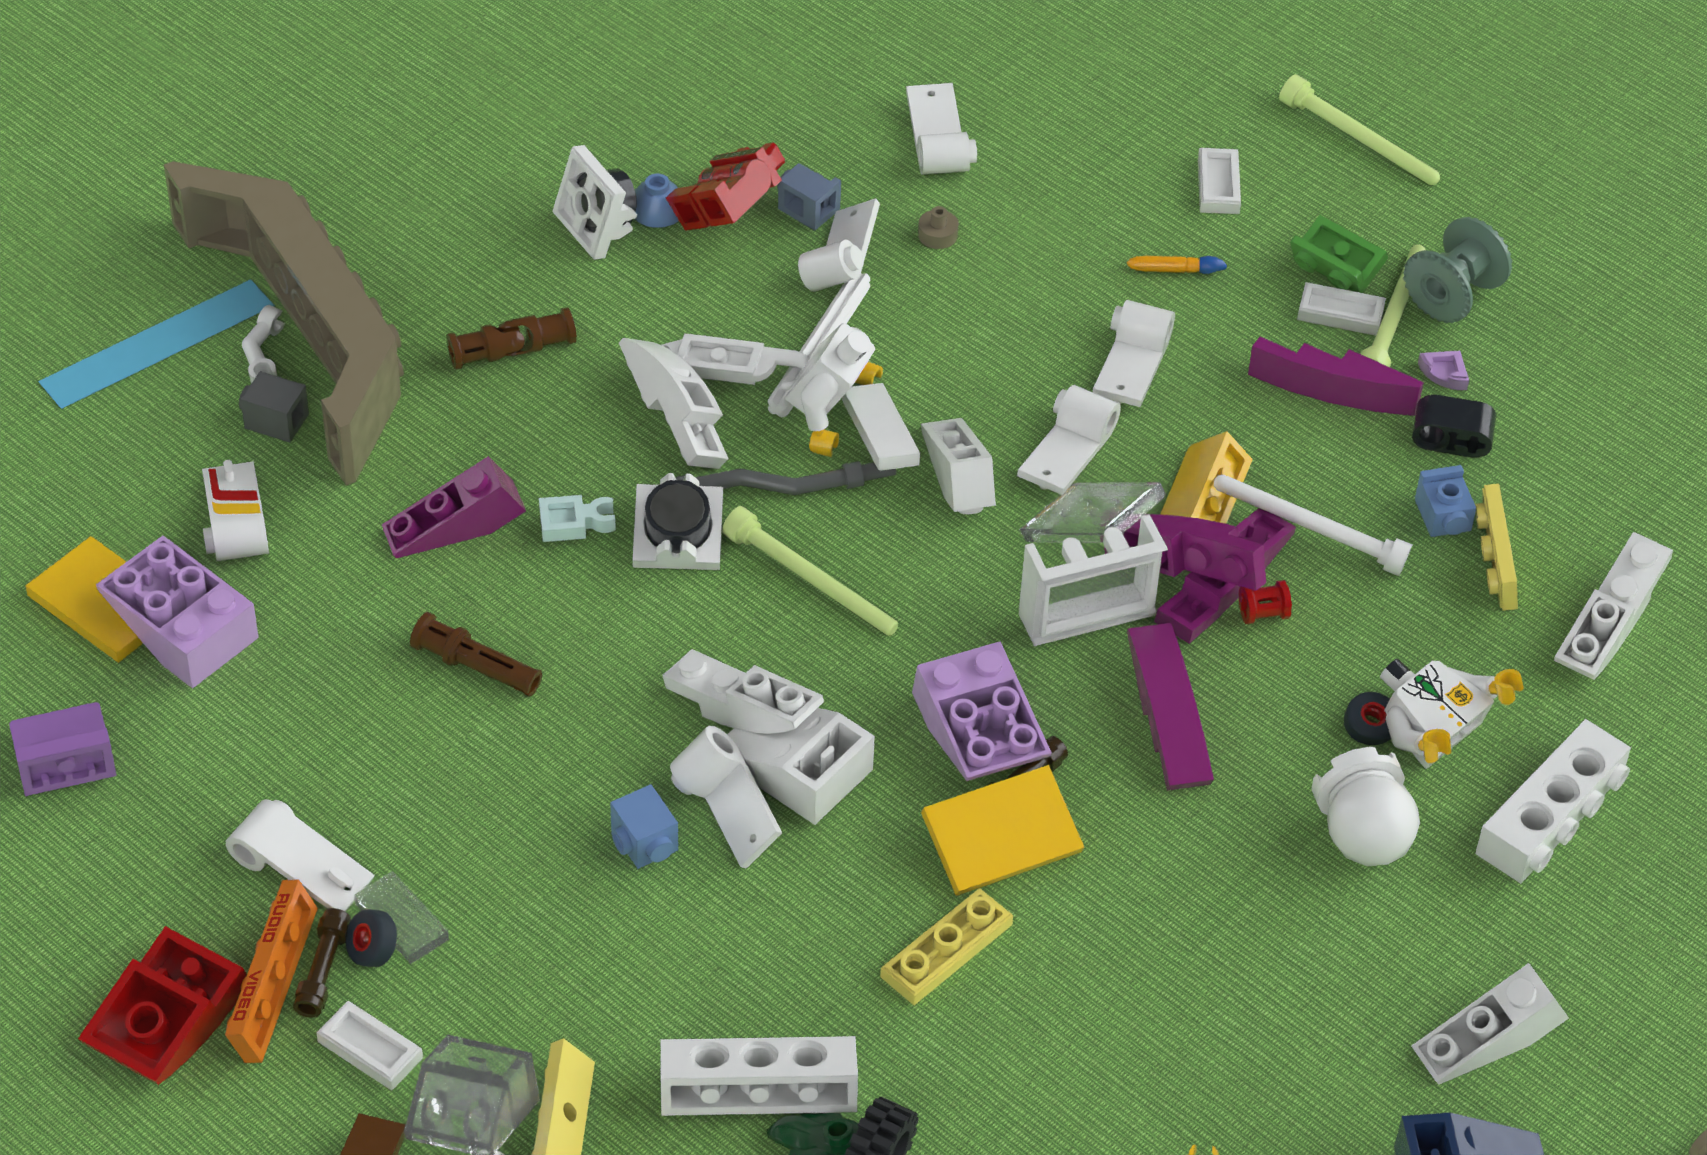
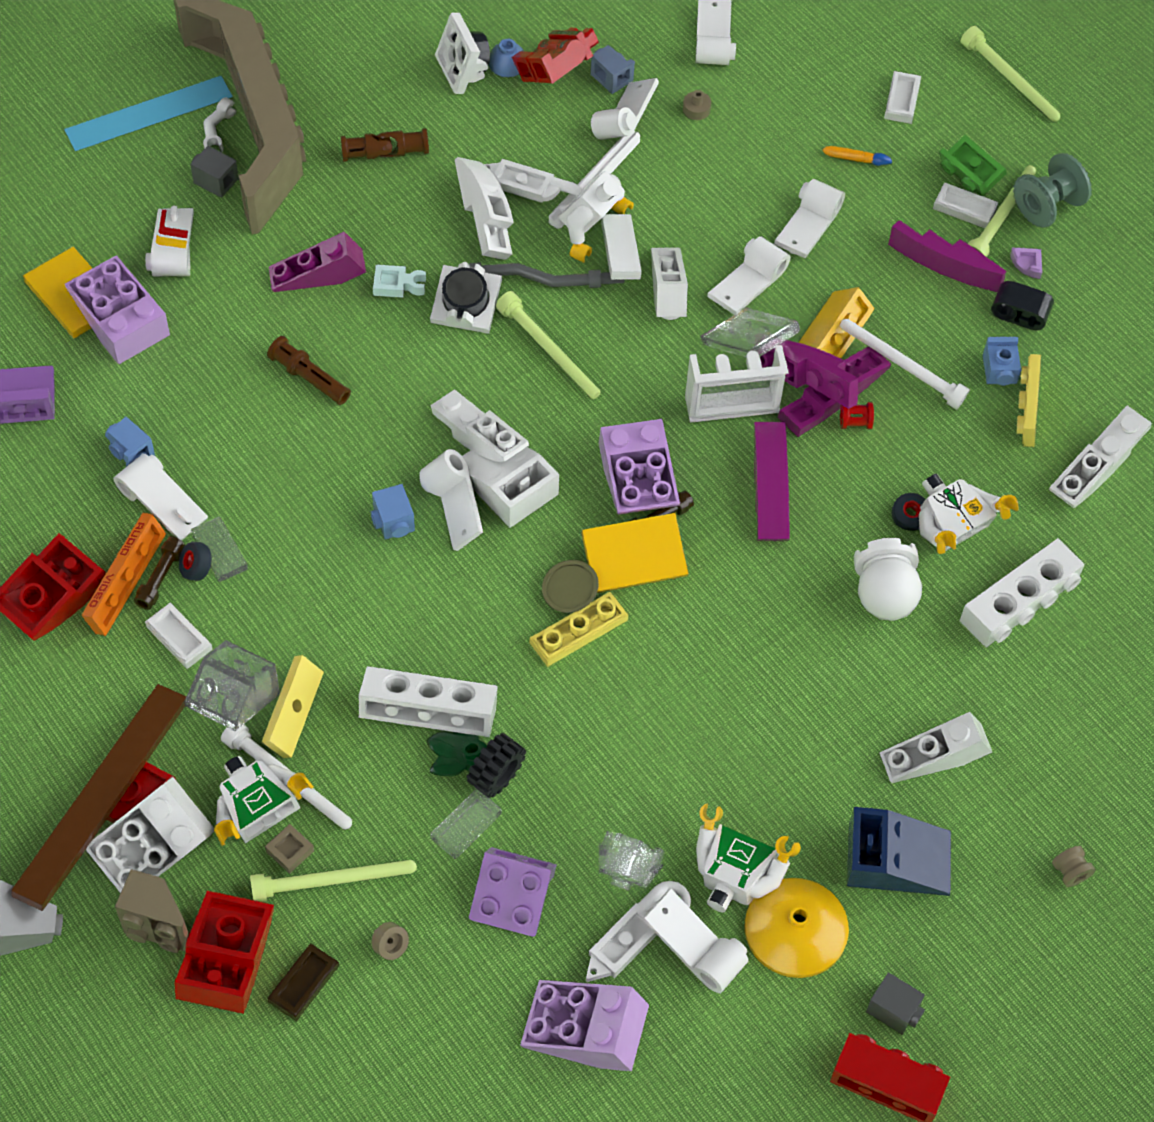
camera: 10 degrees right, 10 degrees up
(235, 787) = (128, 441): none -> medium blue brick
(922, 888) = (570, 586): none -> olive piece

